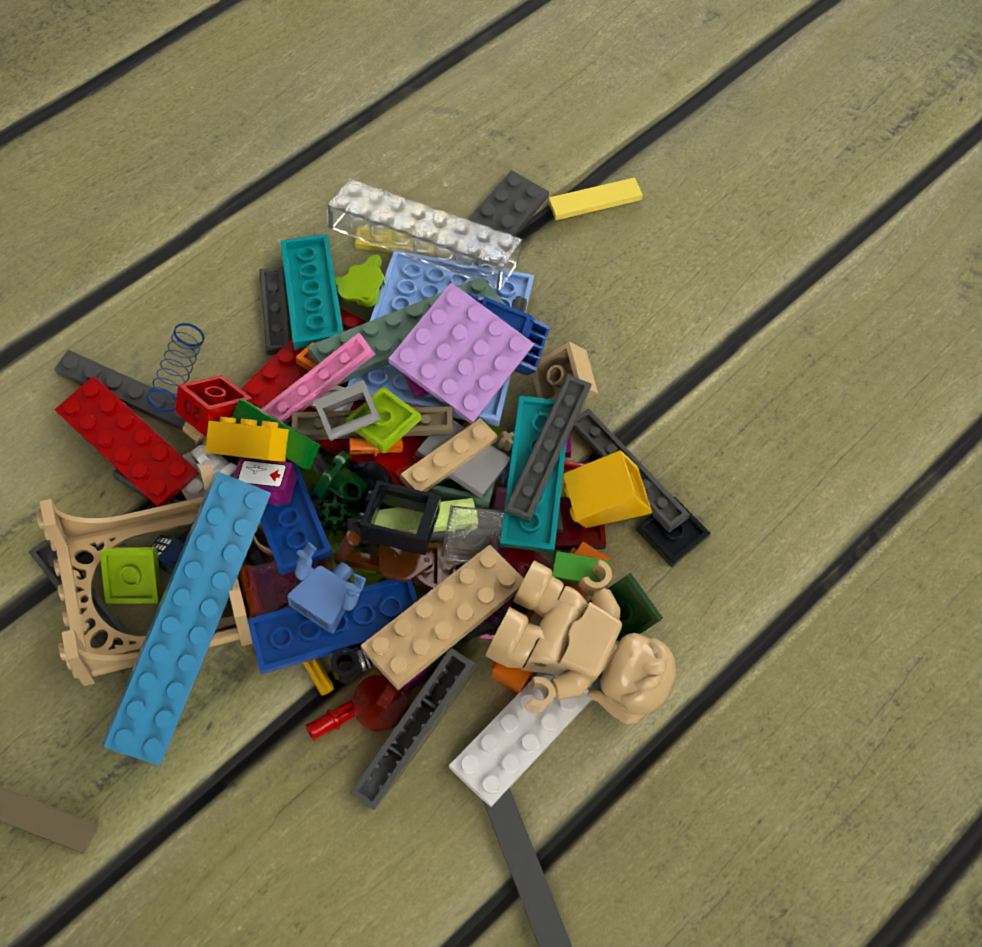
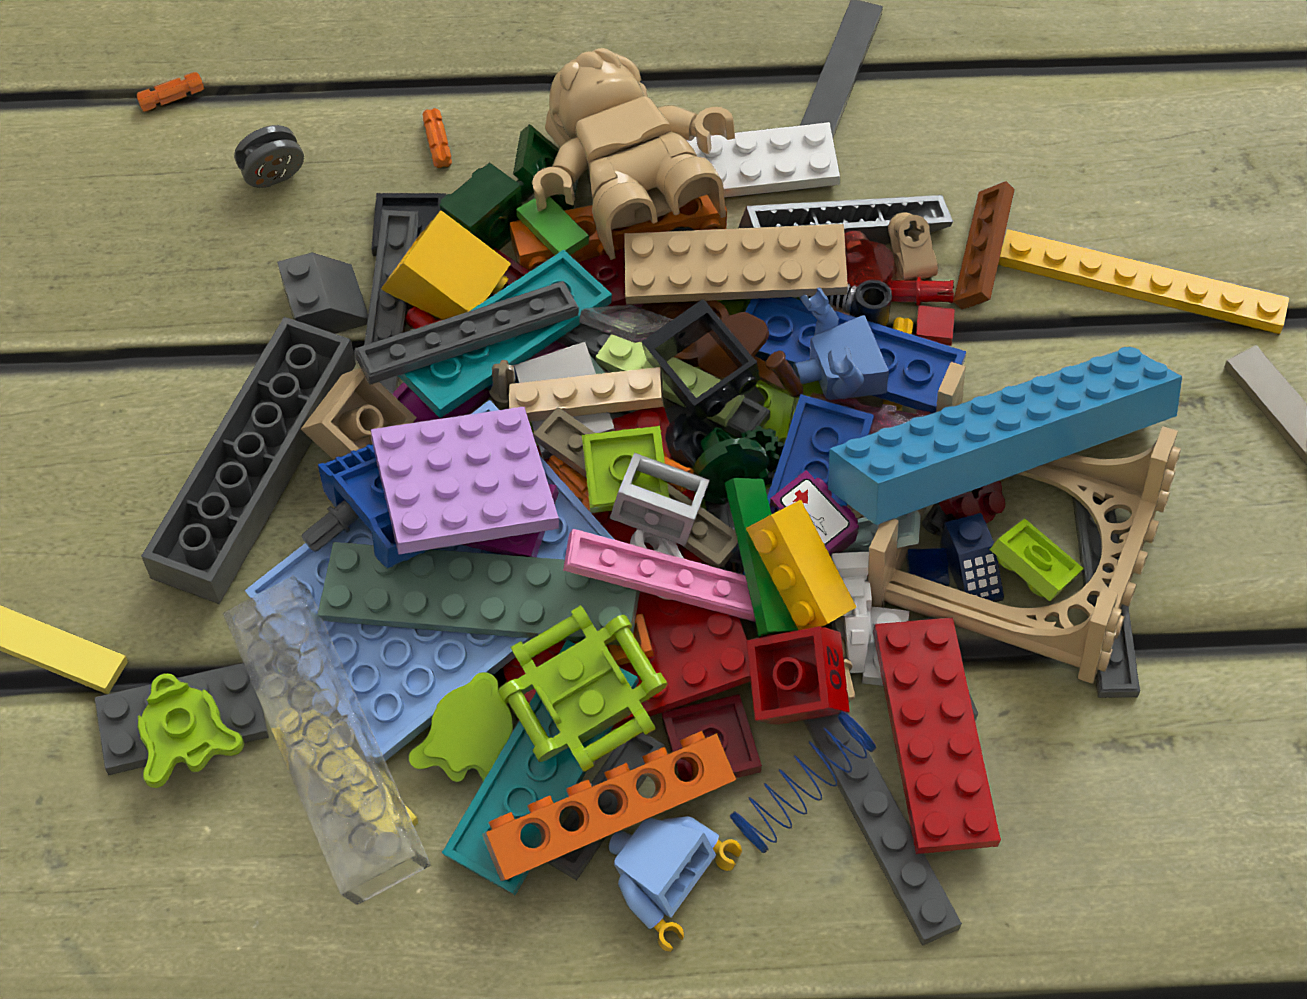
camera: 135 degrees left, 5 degrees down
(189, 852) = (1144, 281): none -> yellow plate
(217, 293) = (663, 866): none -> light blue torso
(239, 361) = (720, 717): none -> dark red plate
(259, 289) = (709, 772): none -> orange brick
(307, 705) = (935, 324): none -> red tile
(311, 310) = (583, 689): none -> lime brick
(316, 789) = (984, 245): none -> dark orange plate
(357, 741) = (914, 252): none -> tan piece
(492, 198) = (182, 727): none -> lime tile
(601, 329) = (247, 462): none -> dark grey brick
(630, 547) = (486, 205): none -> dark green container
(667, 445) = (323, 292): none -> dark grey slope
(719, 599) = (437, 138): none -> orange axle
(787, 495) = (268, 156): none -> dark grey head
(896, 508) = (170, 91): none -> orange axle

